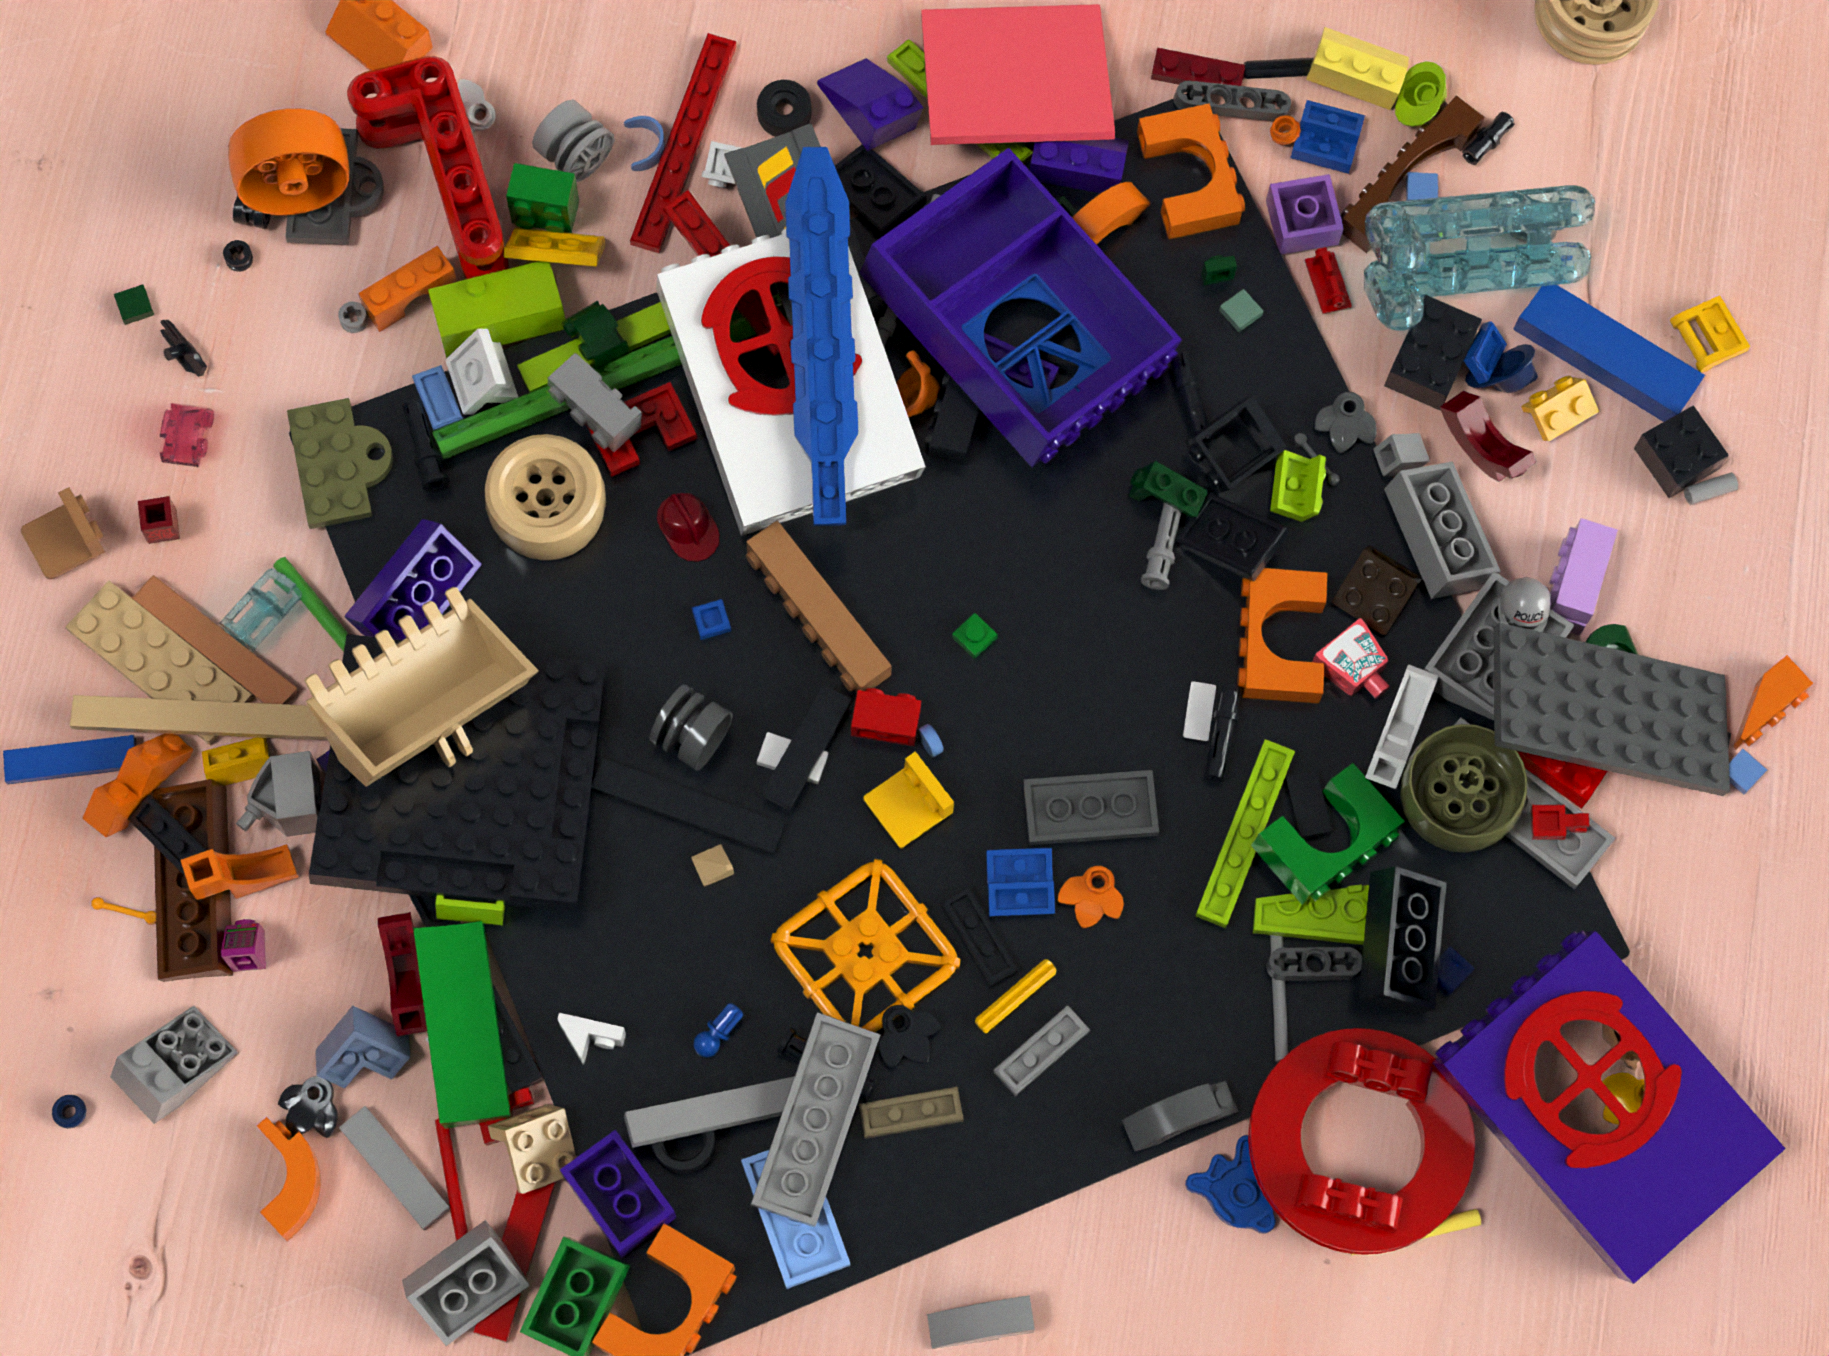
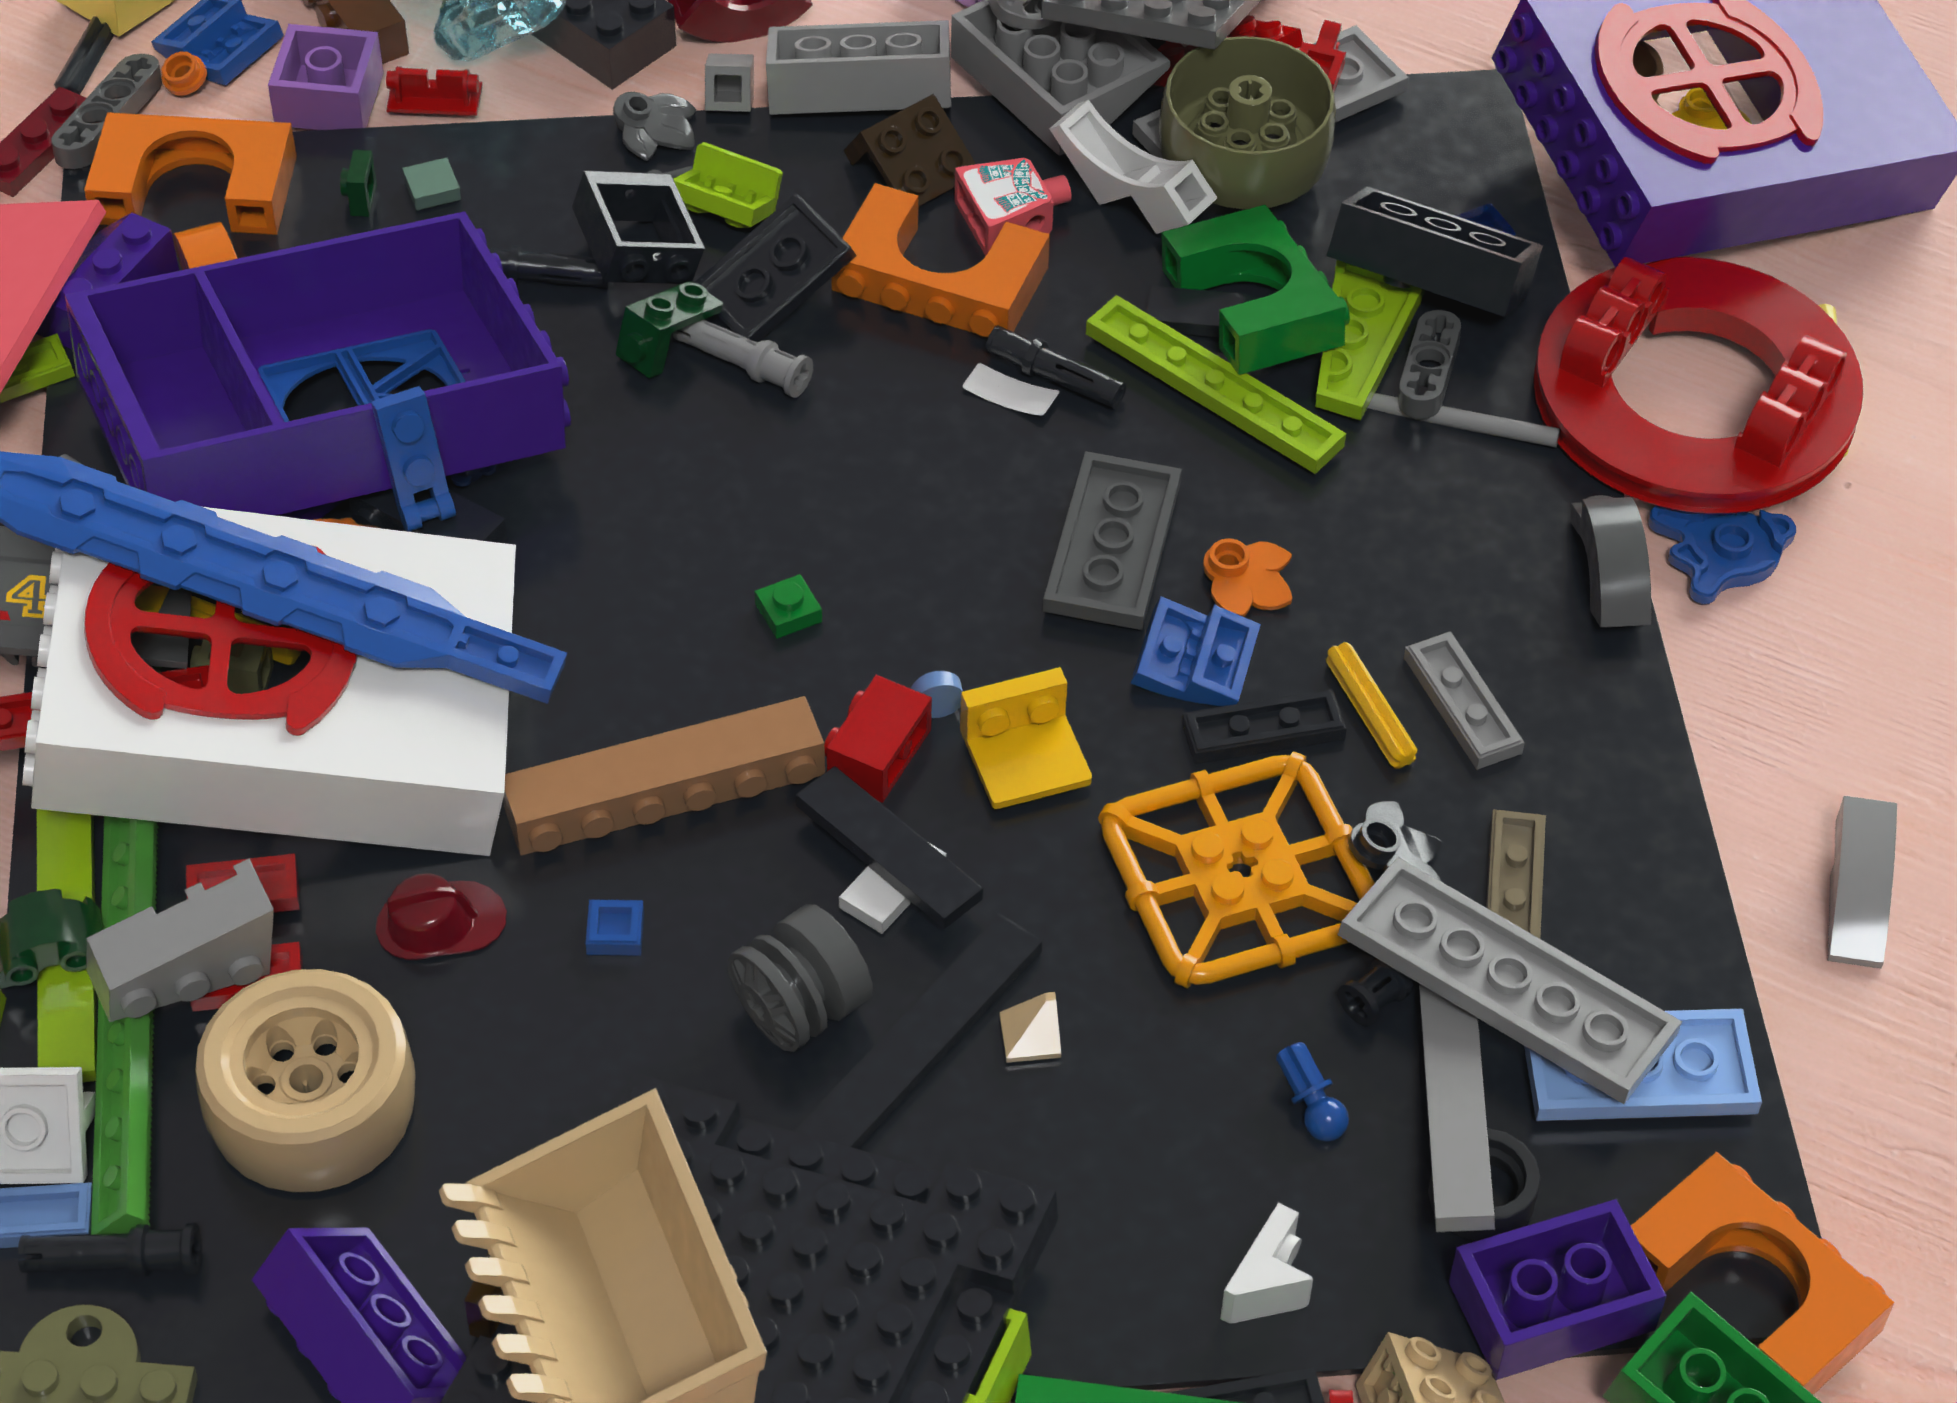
camera: 70 degrees left, 20 degrees down
(961, 386) = (412, 457): none -> blue plate

